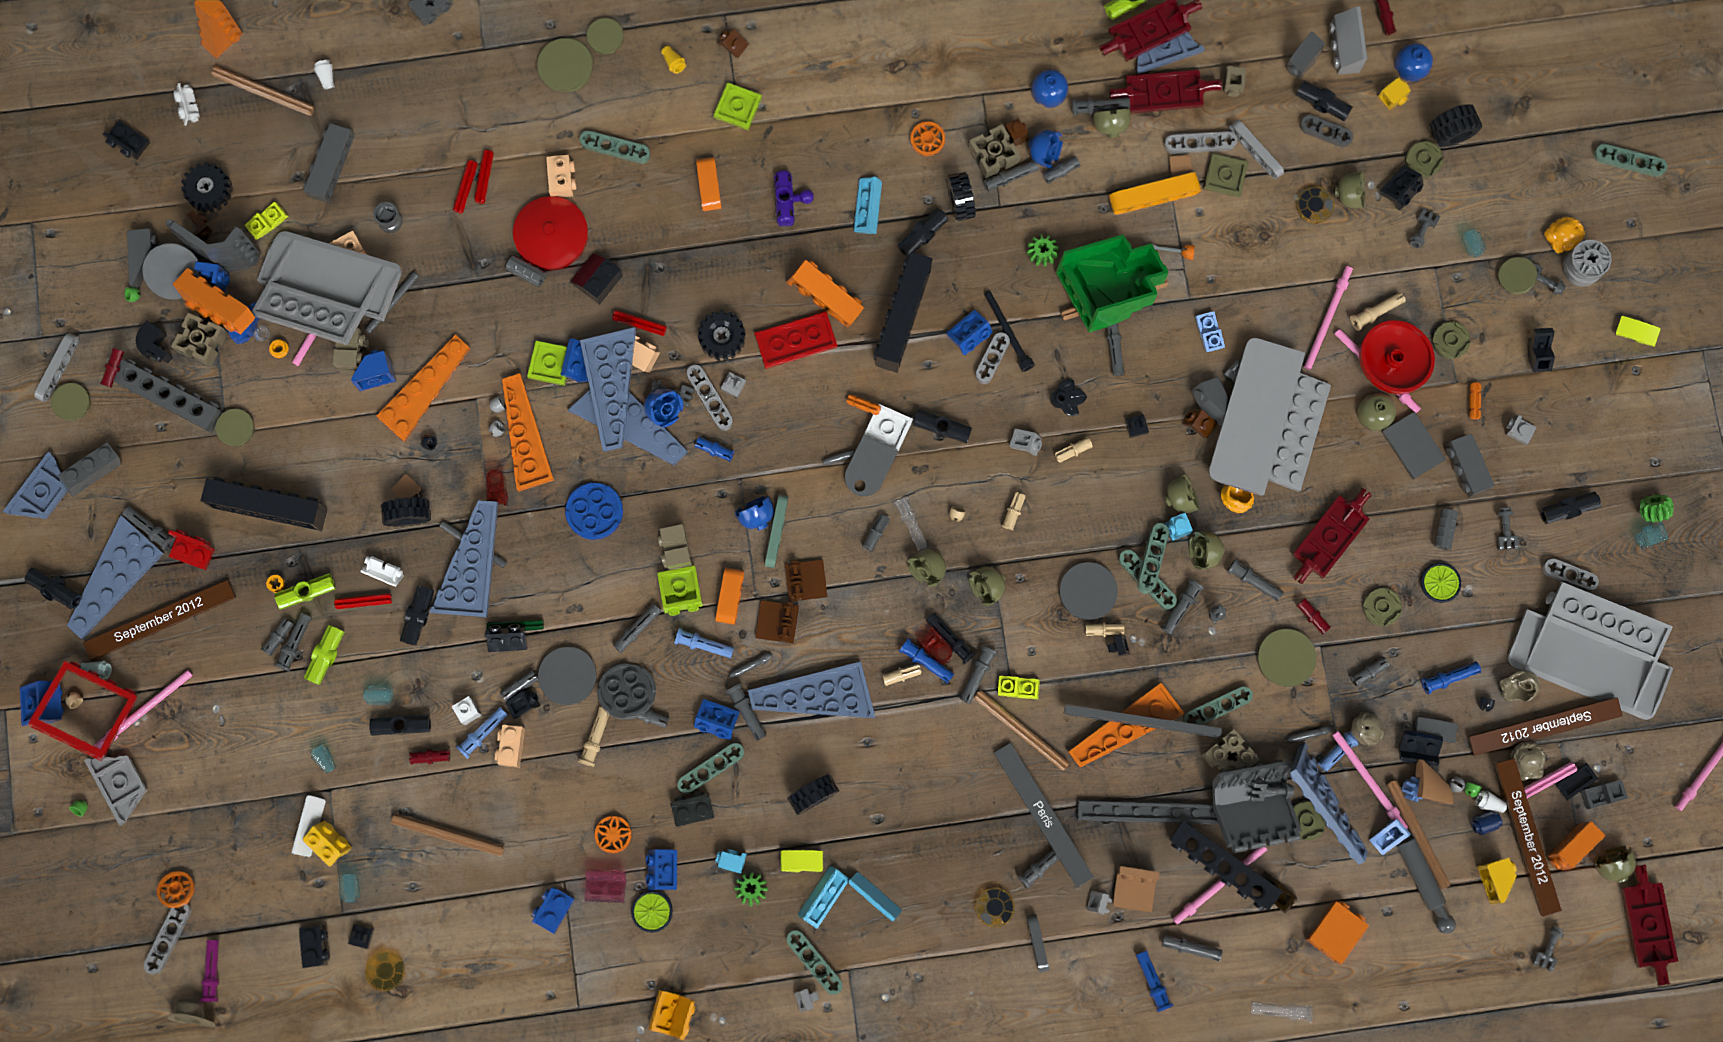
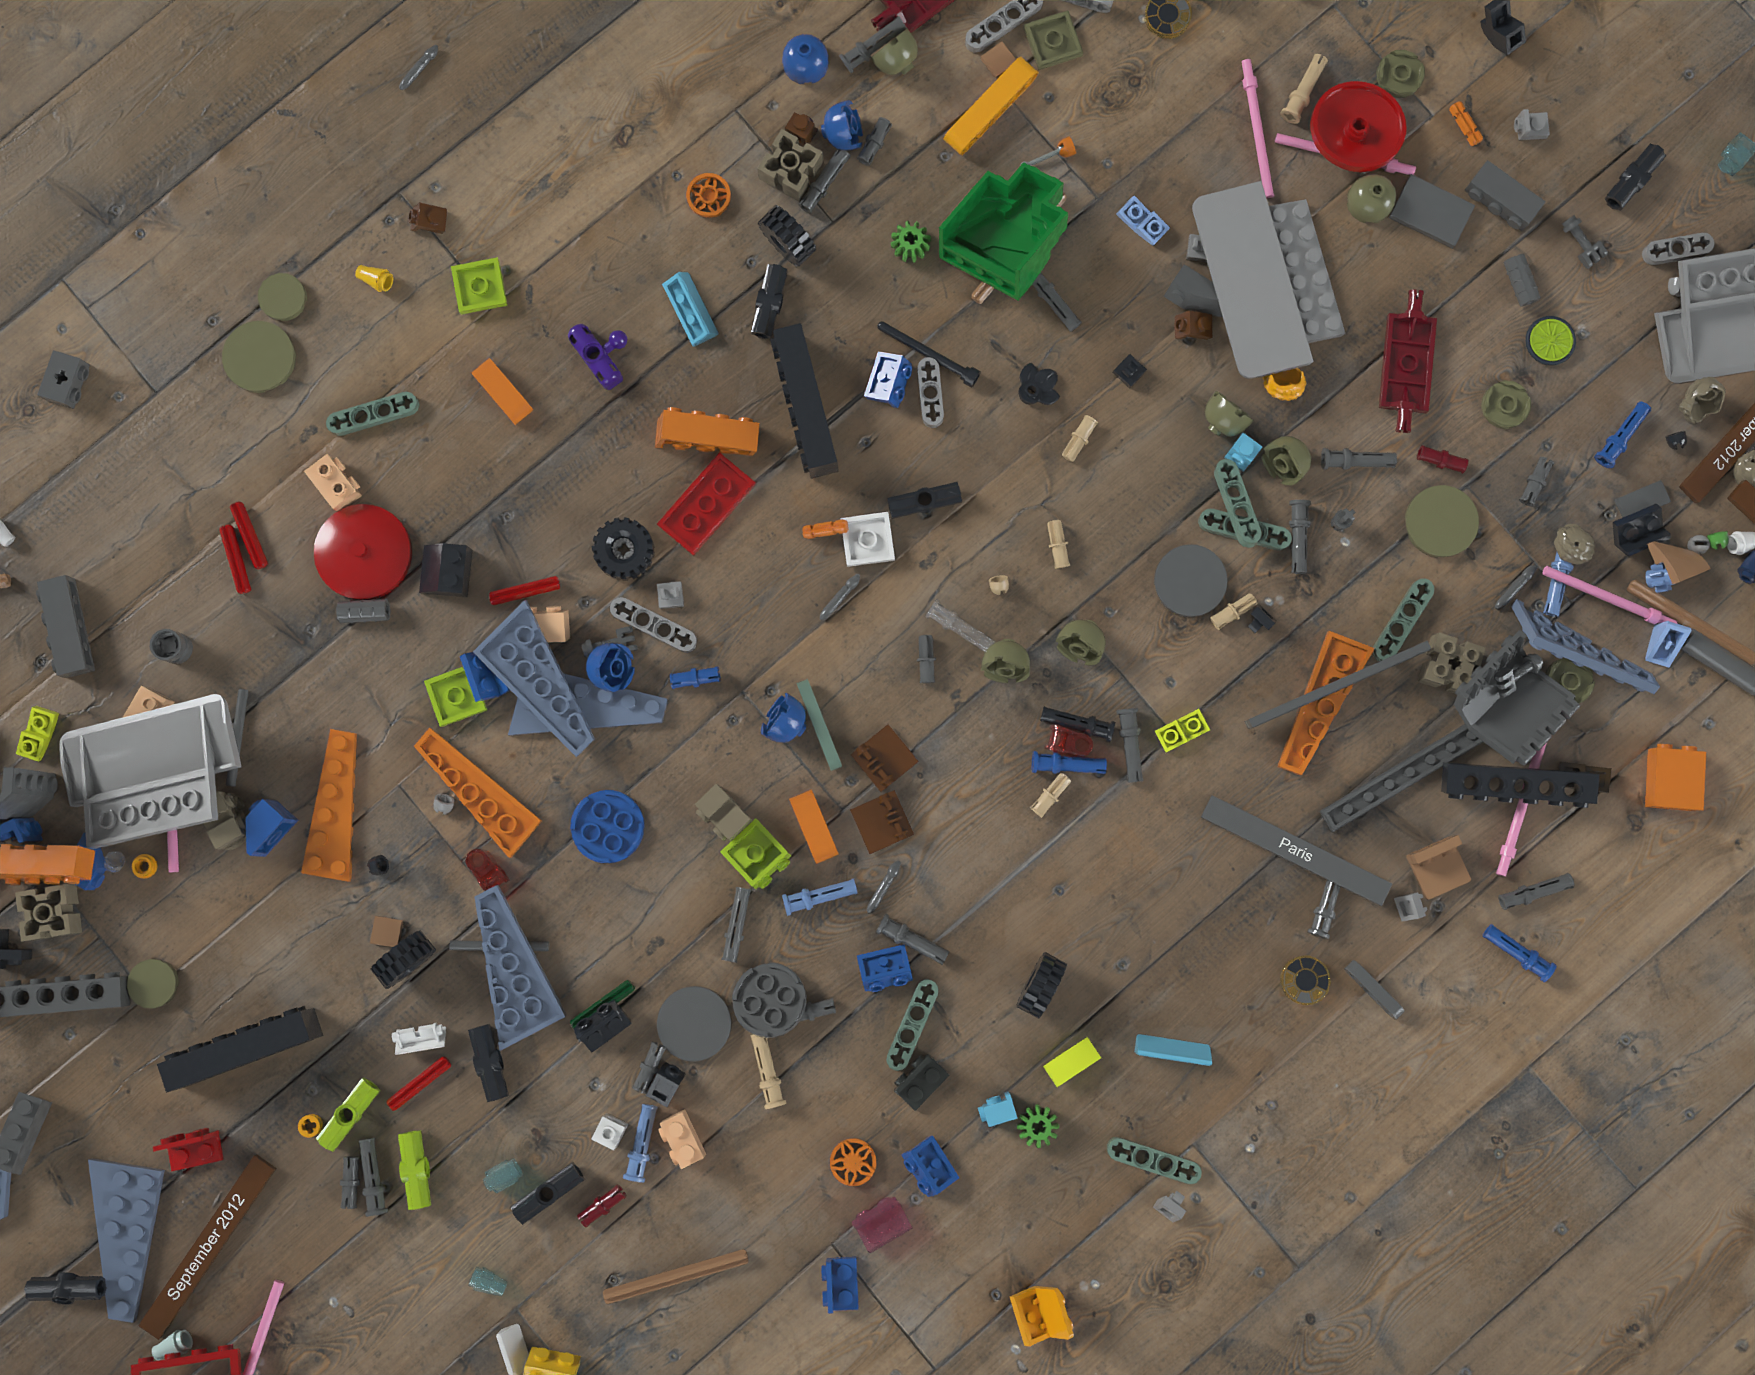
camera: 30 degrees left, 5 degrees up
(155, 533) = (140, 1158): dark grey pin -> none
(497, 404) = (427, 777): light grey hinge -> none
(651, 911) = (947, 1217): lime wheel -> none
(823, 896) = (1118, 1084): medium azure slope -> none
(829, 692) = (985, 864): sand blue wing -> none
(870, 464) = (874, 590): dark grey tile -> none
(1021, 730) = (1214, 774): medium nougat axle -> none
(1026, 441) = (1023, 461): light grey bracket -> none
(1289, 1011) = (1679, 892): clear pin -> none
(1656, 508) = (1725, 121): bright green gear -> none

